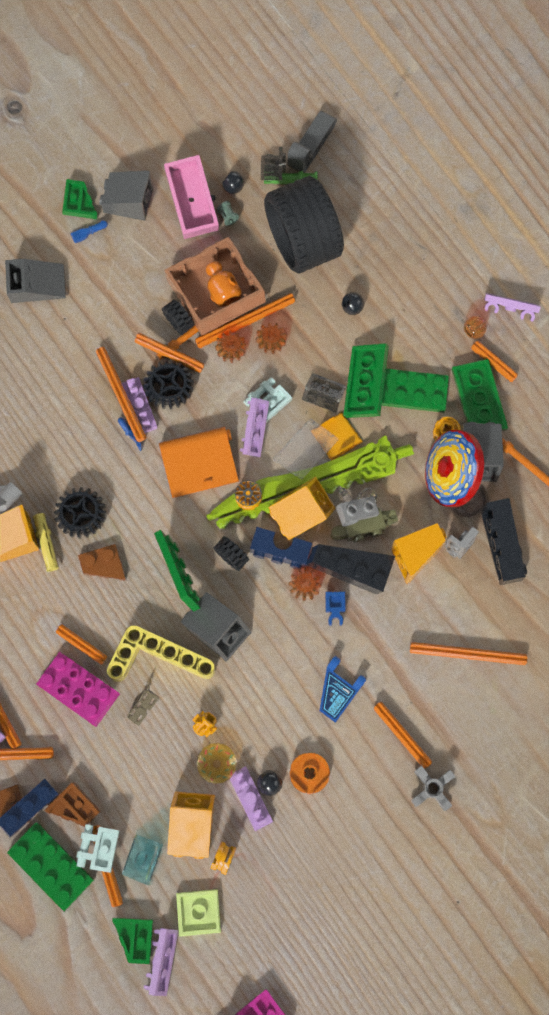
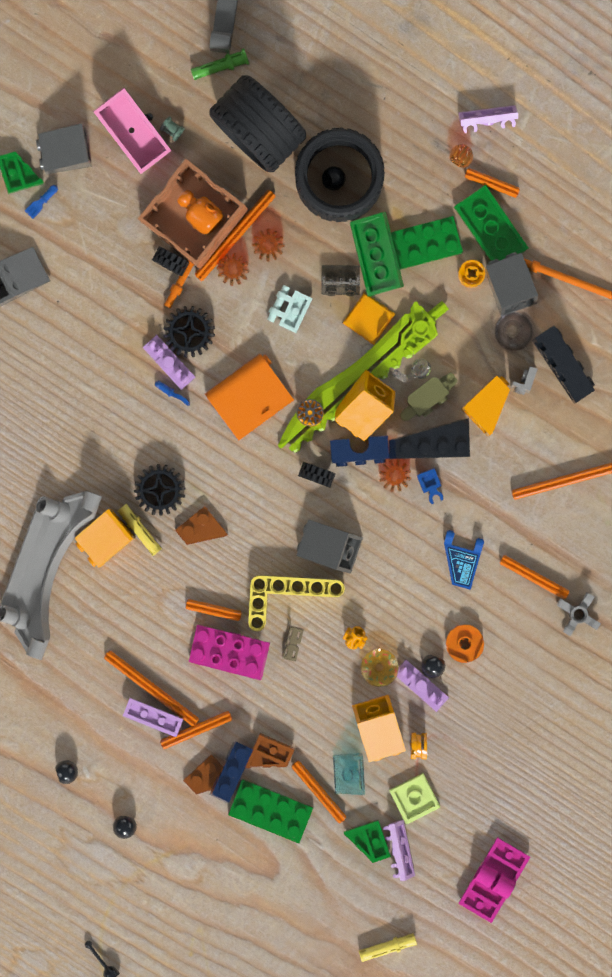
camera: 20 degrees left, 15 degrees up
(103, 851) = (312, 778): light aqua plate -> none
(121, 394) = (147, 359): orange axle -> none
(169, 352) = (179, 300): orange axle -> none
(177, 570) = (272, 509): green plate -> none
(233, 182) = (164, 93): black piece -> none
(255, 427) = (290, 344): lavender plate -> none
(273, 166) = (197, 61): clear smoke bracket -> none
(305, 448) = (345, 344): clear piece -> none
(357, 510) = (418, 390): light grey plate -> none
(367, 266) = (351, 139): none -> black tyre
(454, 468) = (493, 314): dish -> none

